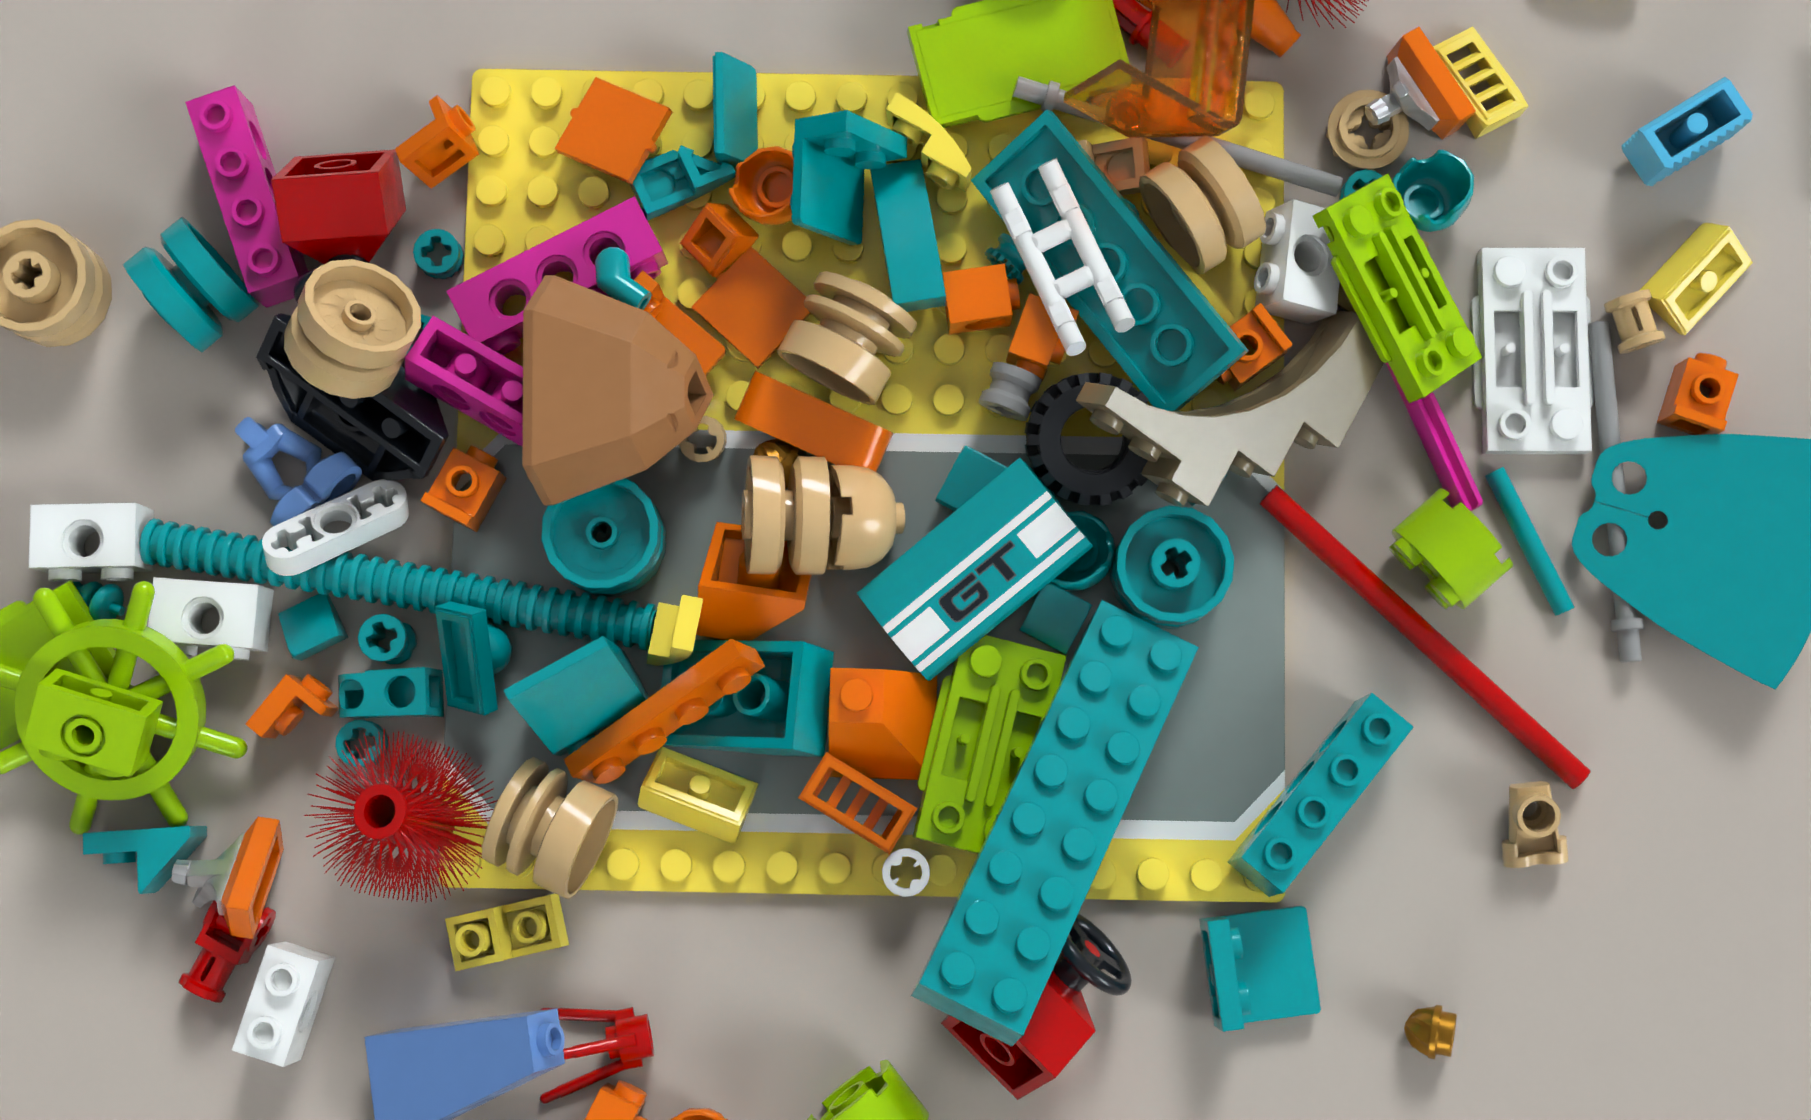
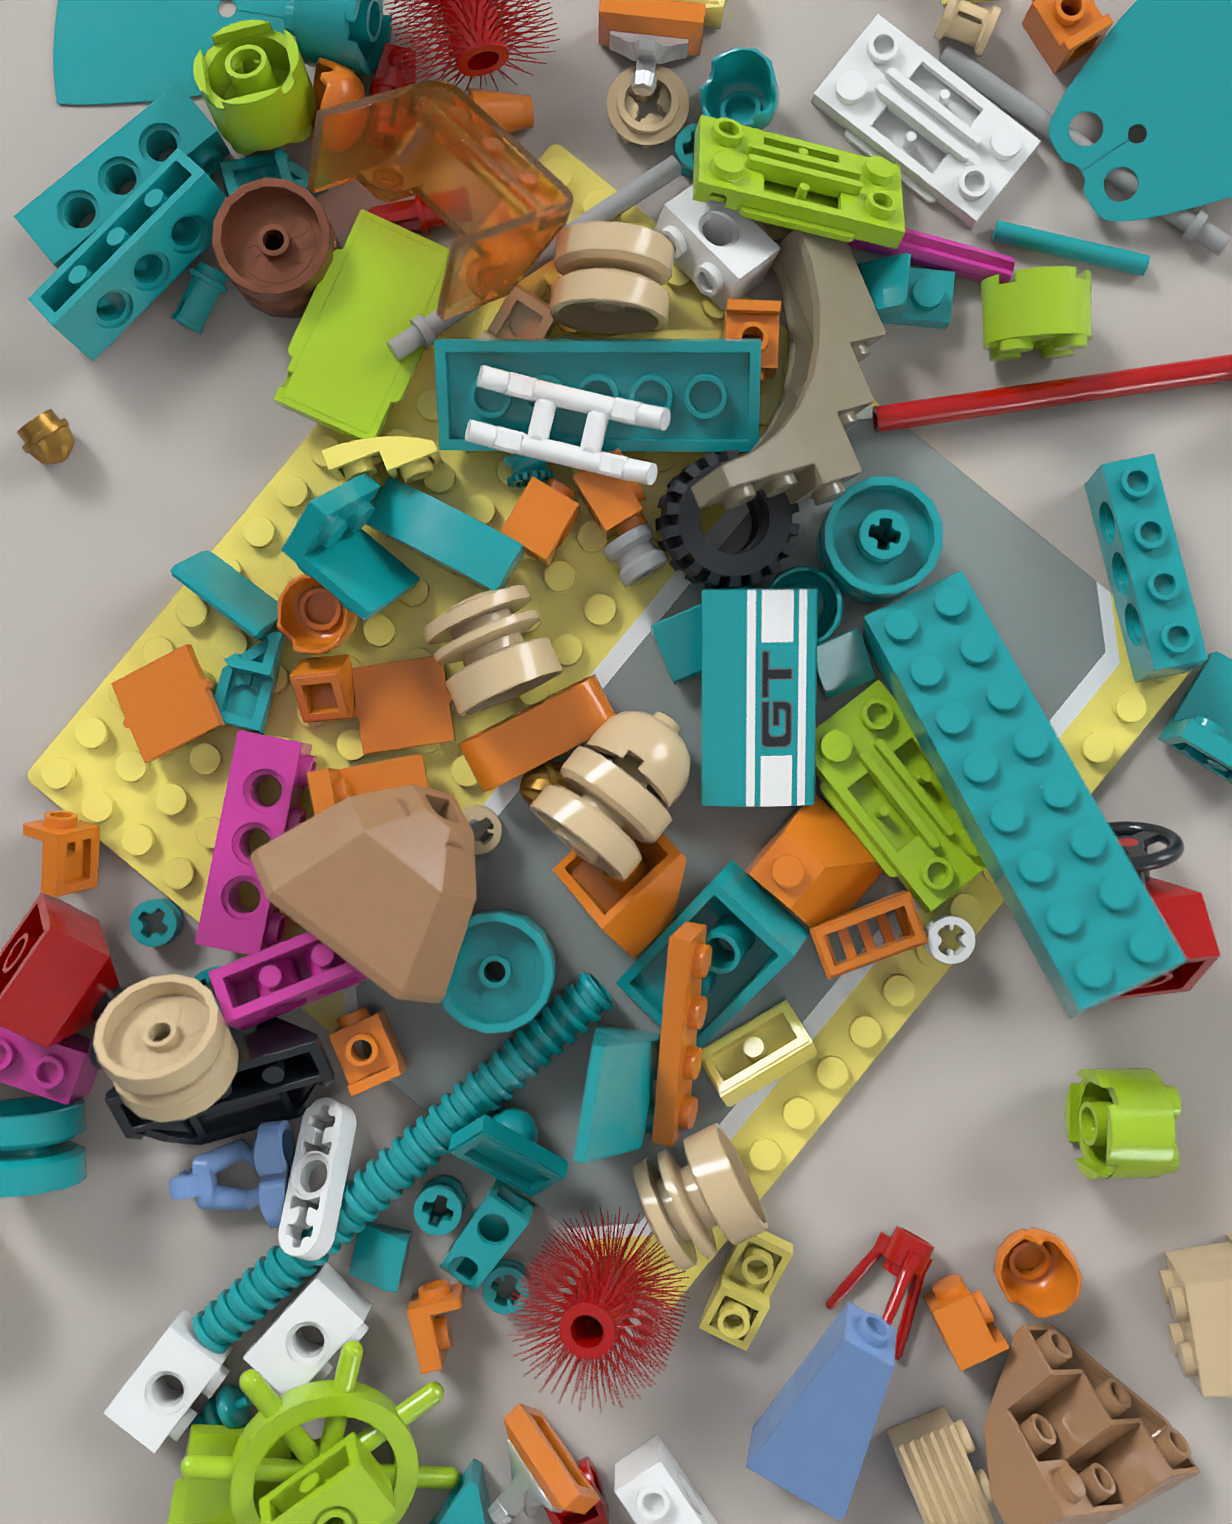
camera: 50 degrees left, 5 degrees up
(615, 279) = (296, 800): teal arm -> none
(674, 631) = (620, 974): light yellow slope -> none
(1386, 441) = (907, 293): none -> teal slope

